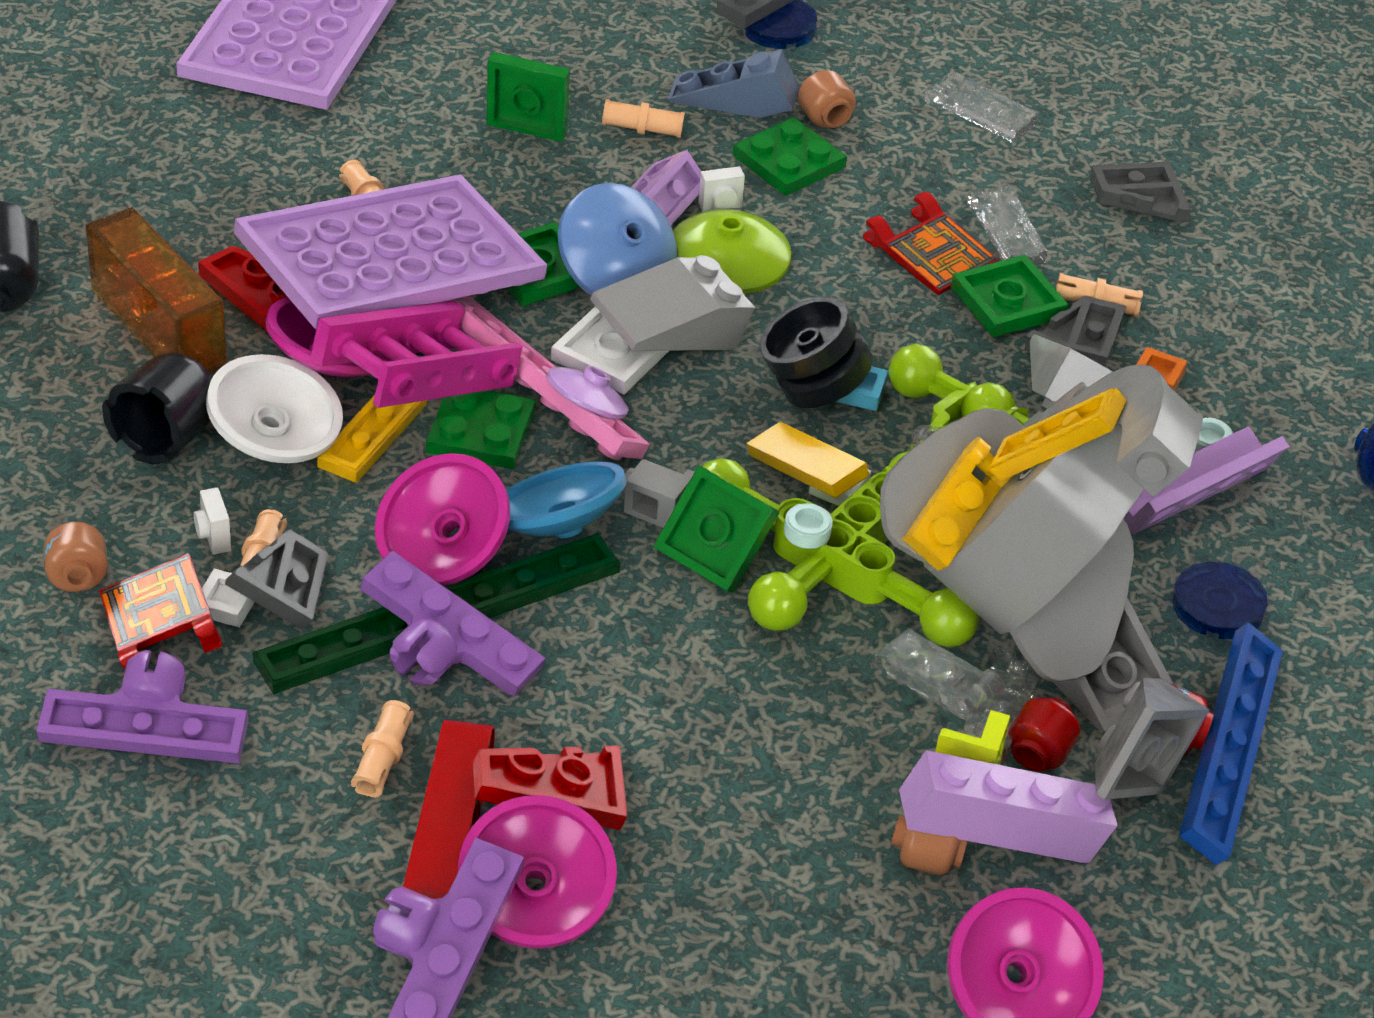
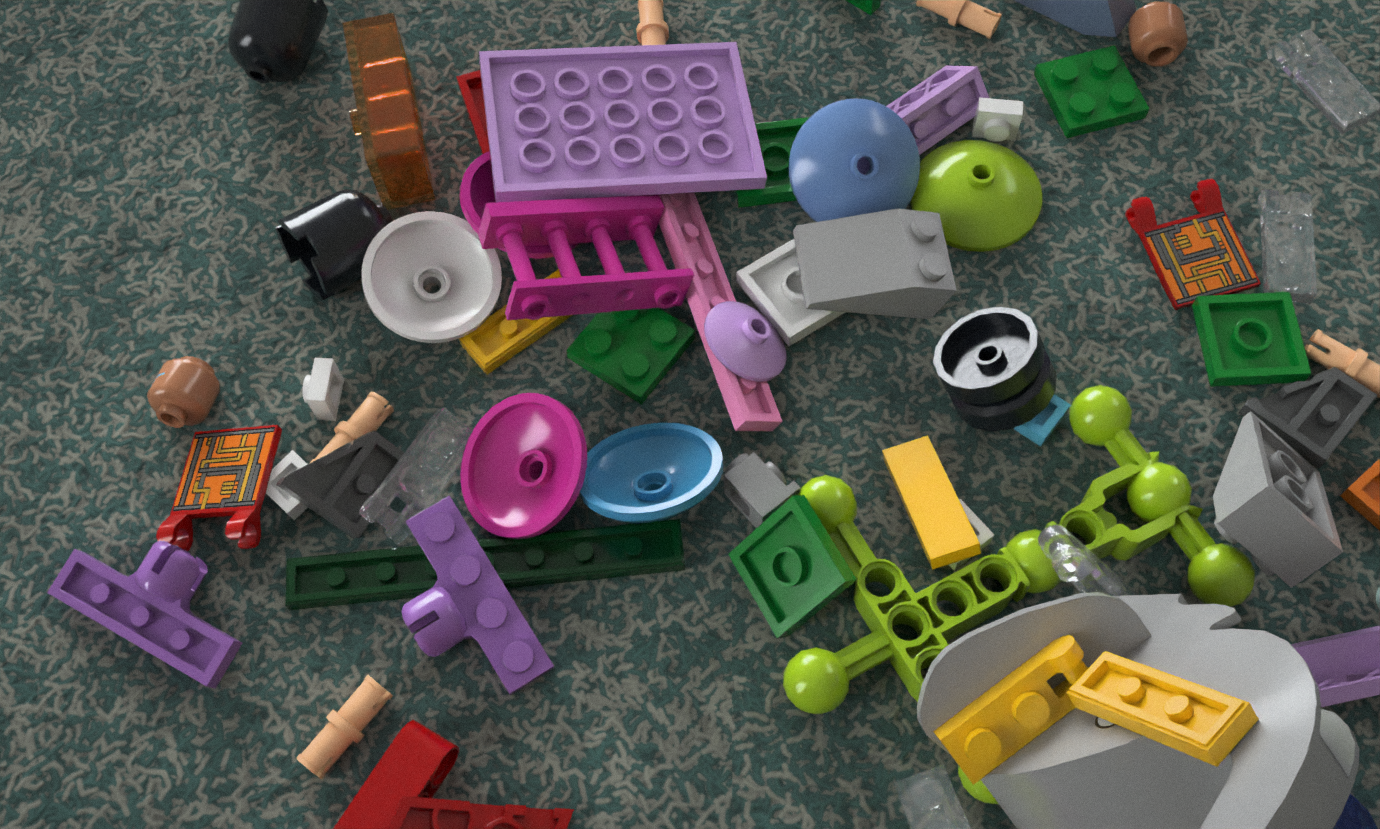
camera: 30 degrees right, 20 degrees up
(344, 559) = (419, 474): none -> clear plate
(808, 525) = (879, 608): light aqua tile -> none

